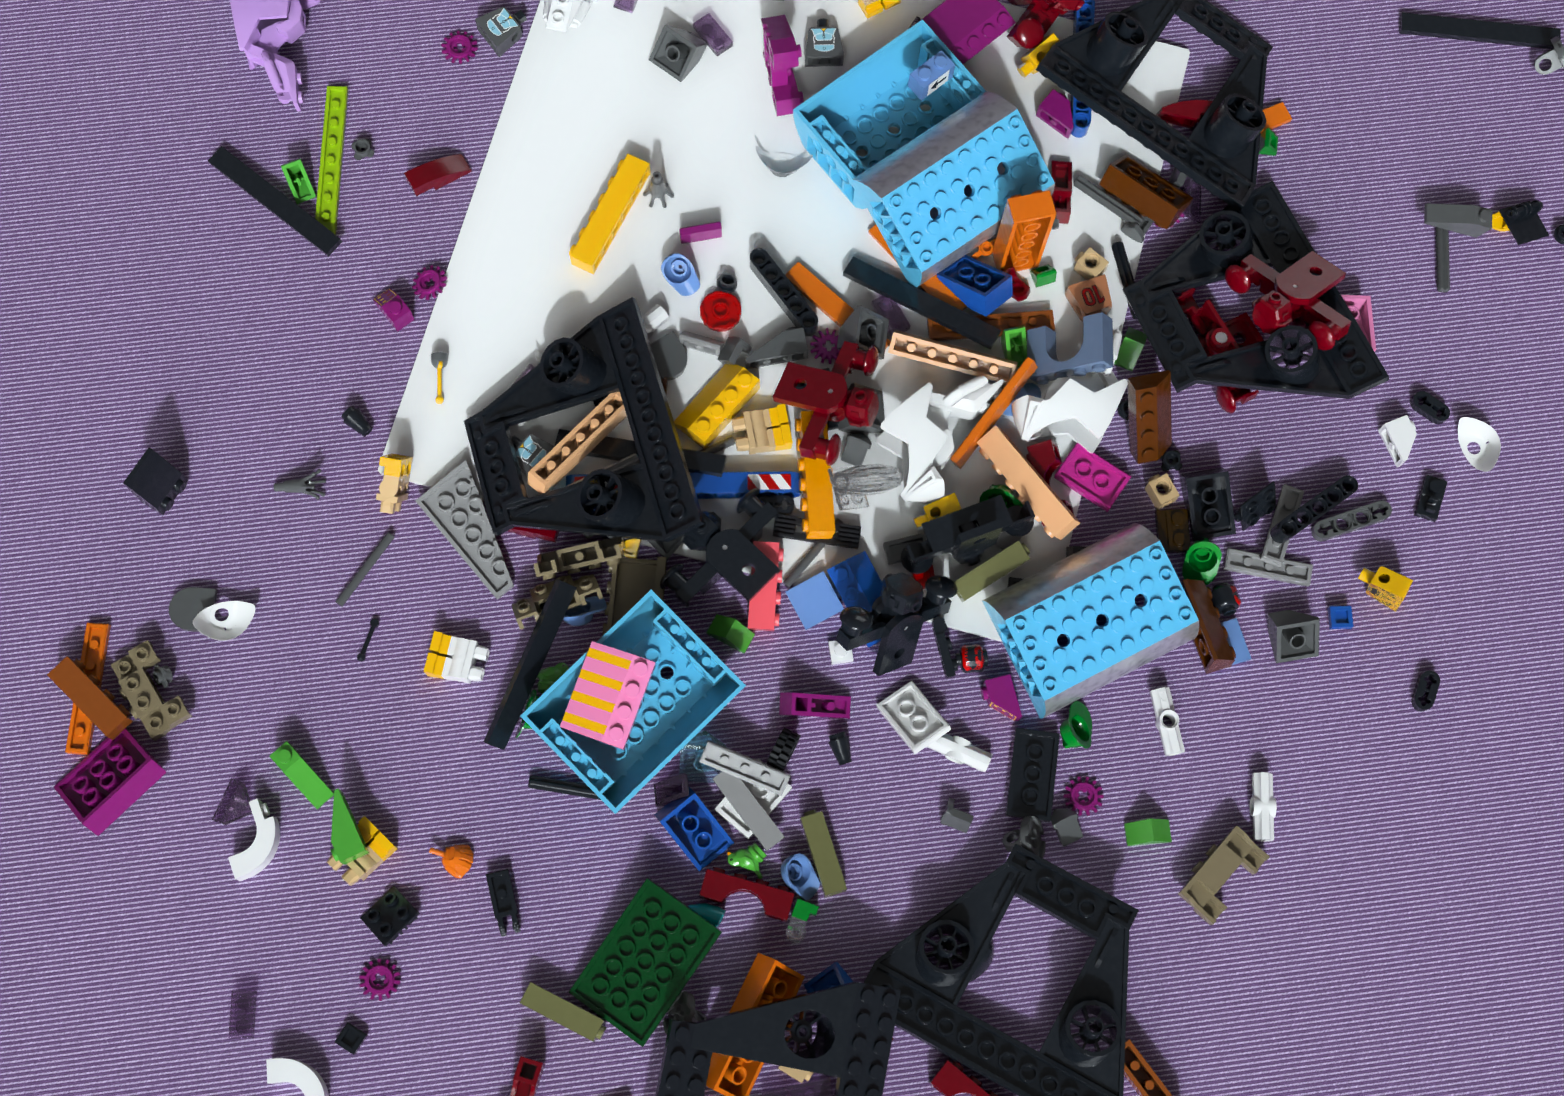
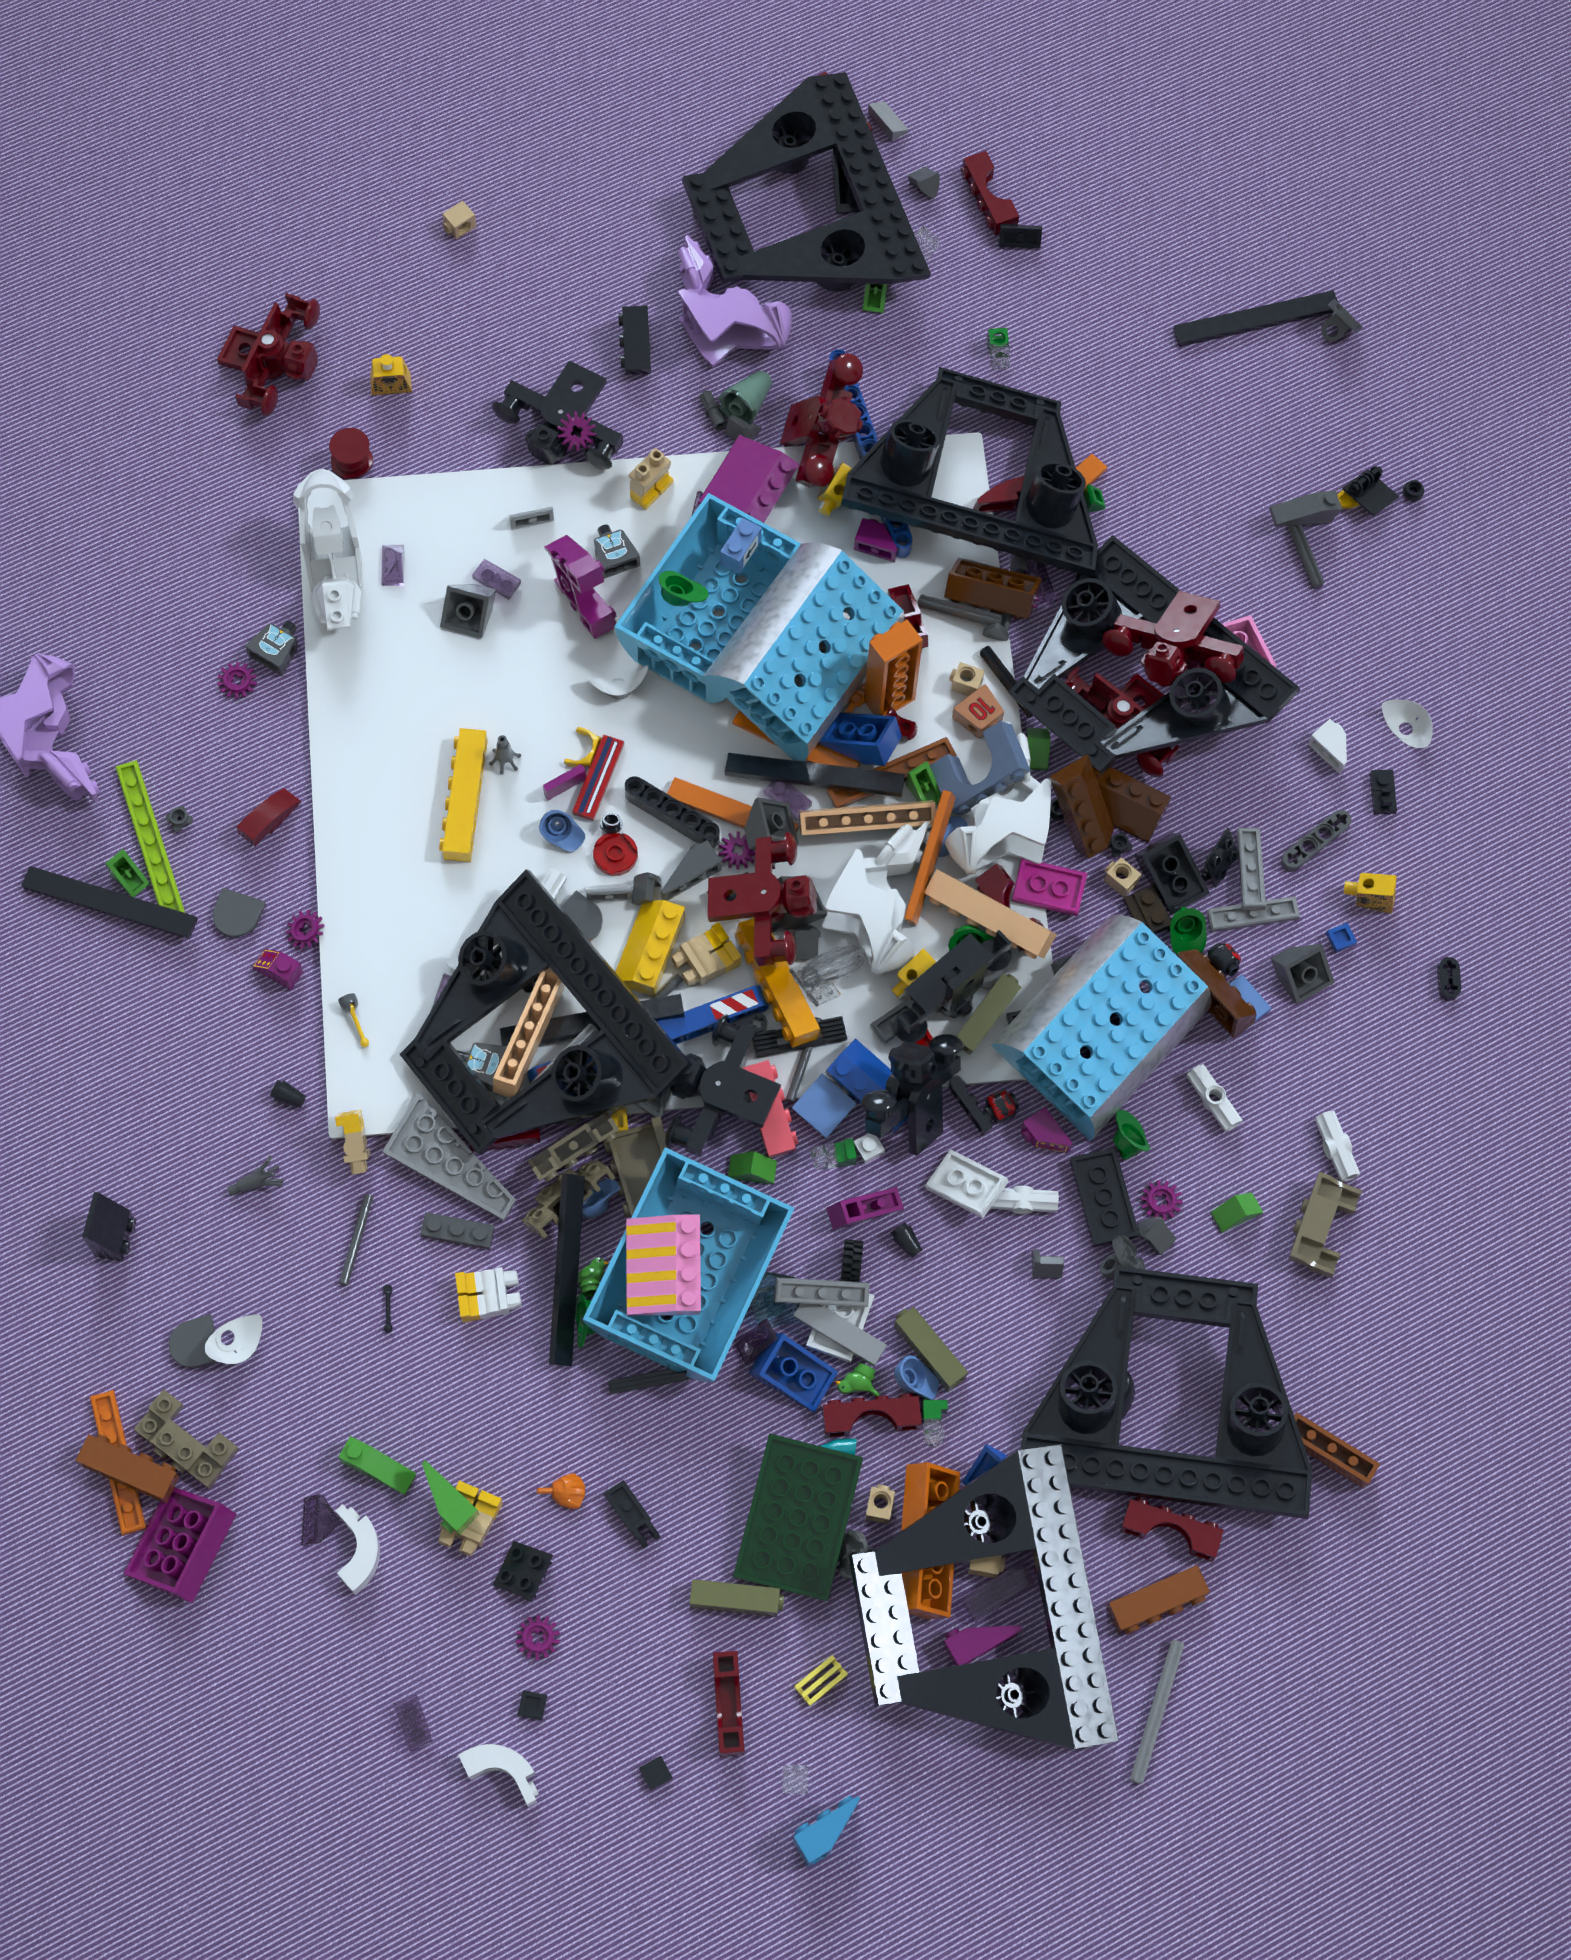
camera: 20 degrees left, 5 degrees down
(162, 675) = (191, 1420): dark grey plate -> none
(378, 248) = (237, 913): none -> dark grey tile
(454, 593) = (457, 1231): none -> dark grey plate
(715, 984) = (876, 1514): none -> tan brick
(730, 220) = (586, 761): none -> yellow cap
(732, 239) = (598, 777): none -> red tile
(806, 648) = (834, 1155): none -> leg
(861, 95) = (680, 590): none -> green piece
(1043, 275) = (924, 706): green slope -> none
(1196, 428) = (1132, 804): none -> reddish brown slope
(1321, 504) = (1273, 849): black beam -> none
(1430, 407) = (1349, 704): black beam -> none

